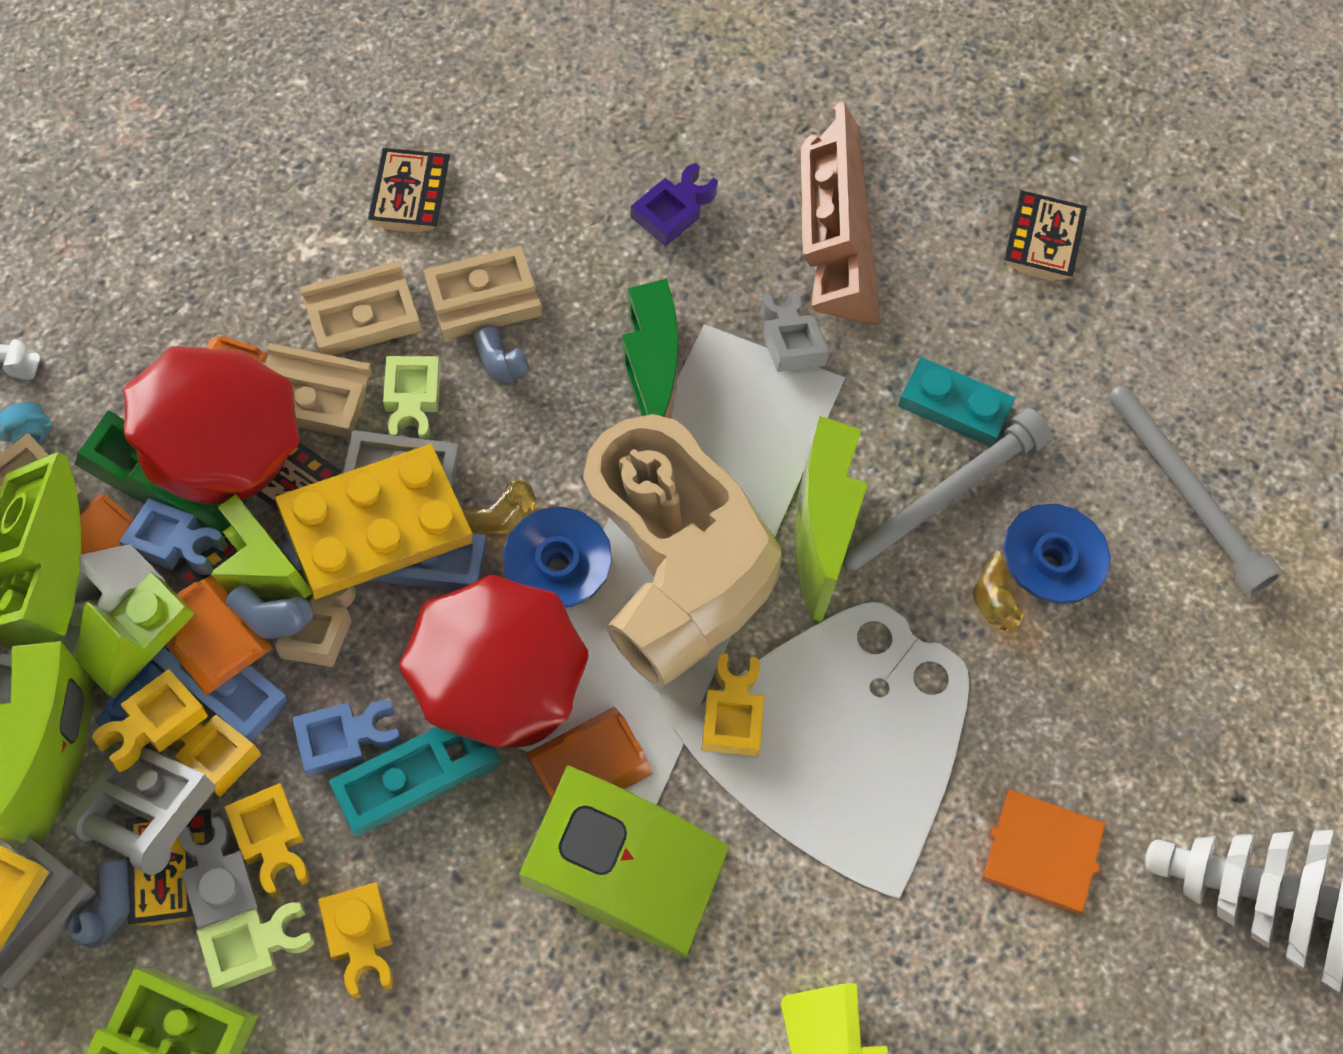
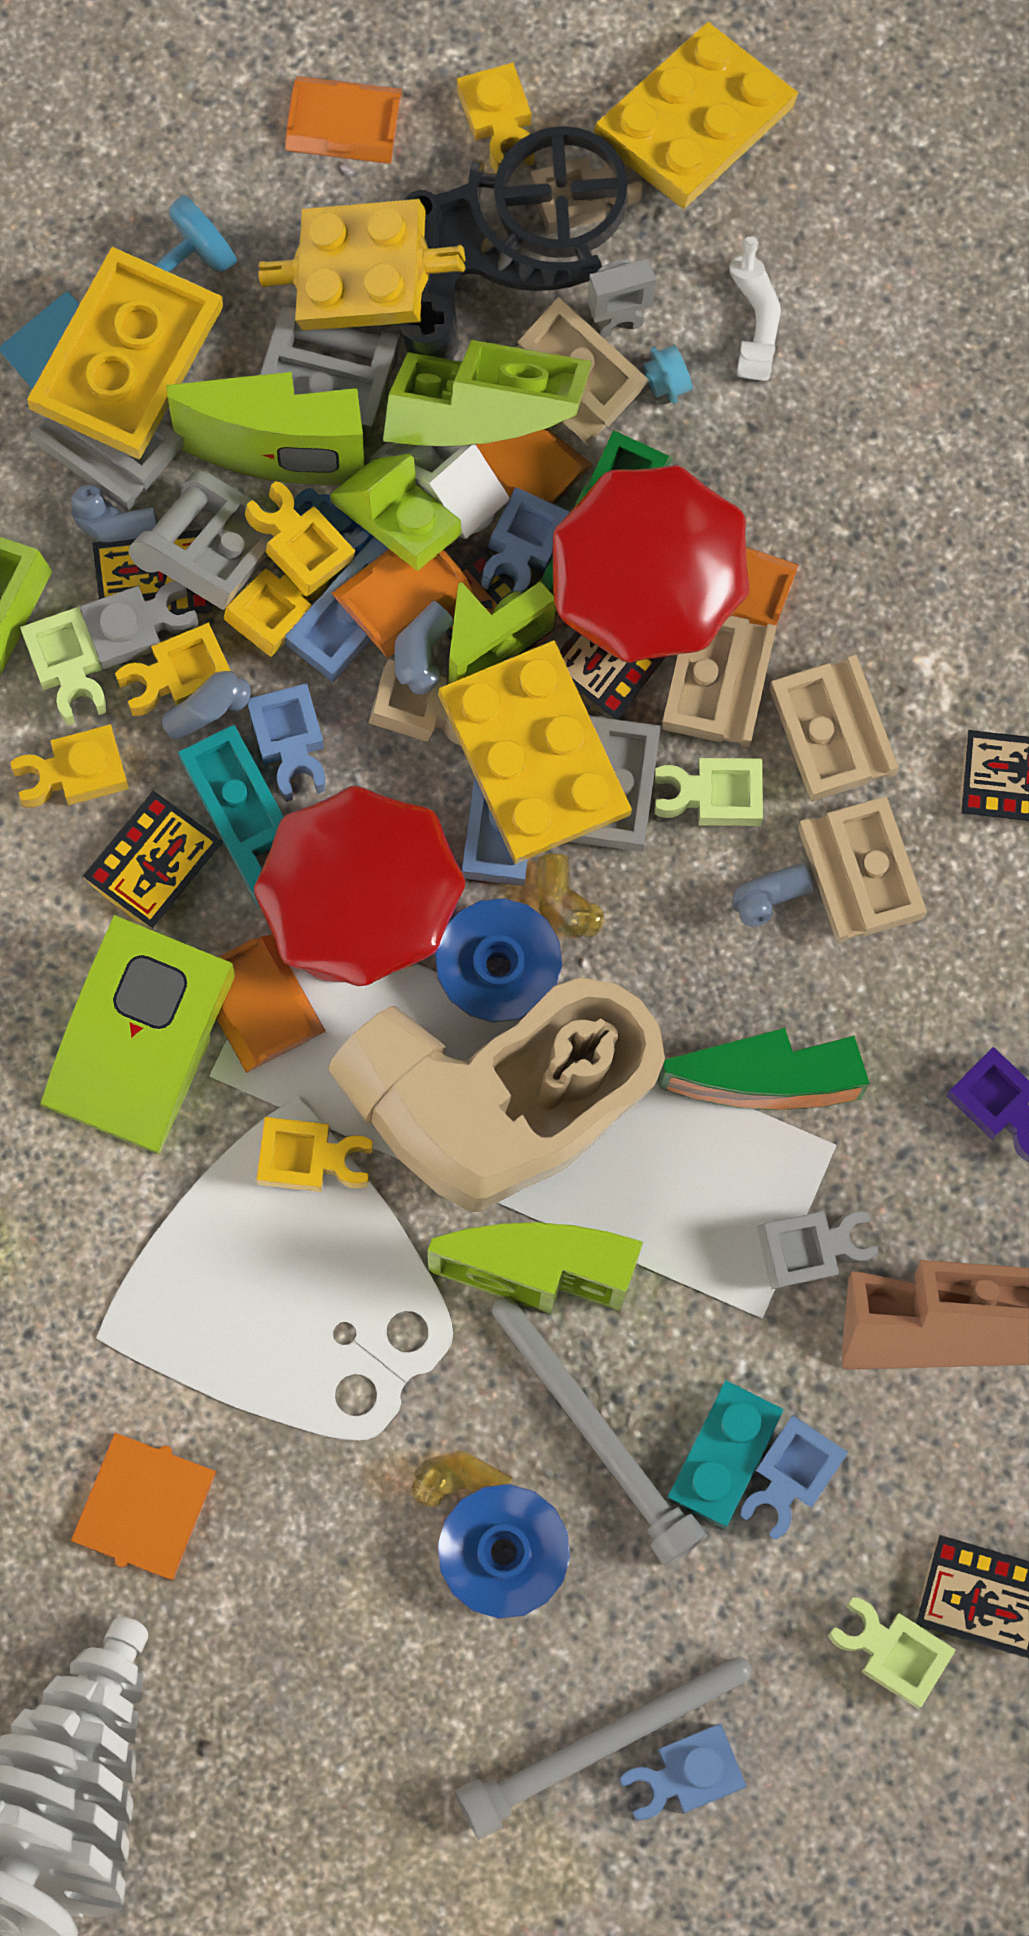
camera: 90 degrees right, 10 degrees up
(308, 805) = (207, 704): none -> sand blue arm
(454, 858) = (151, 860): none -> piece
(966, 348) = (799, 1468): none -> medium blue plate
(1096, 287) = (902, 1656): none -> yellowish green plate
(1204, 427) = (694, 1770): none -> medium blue plate

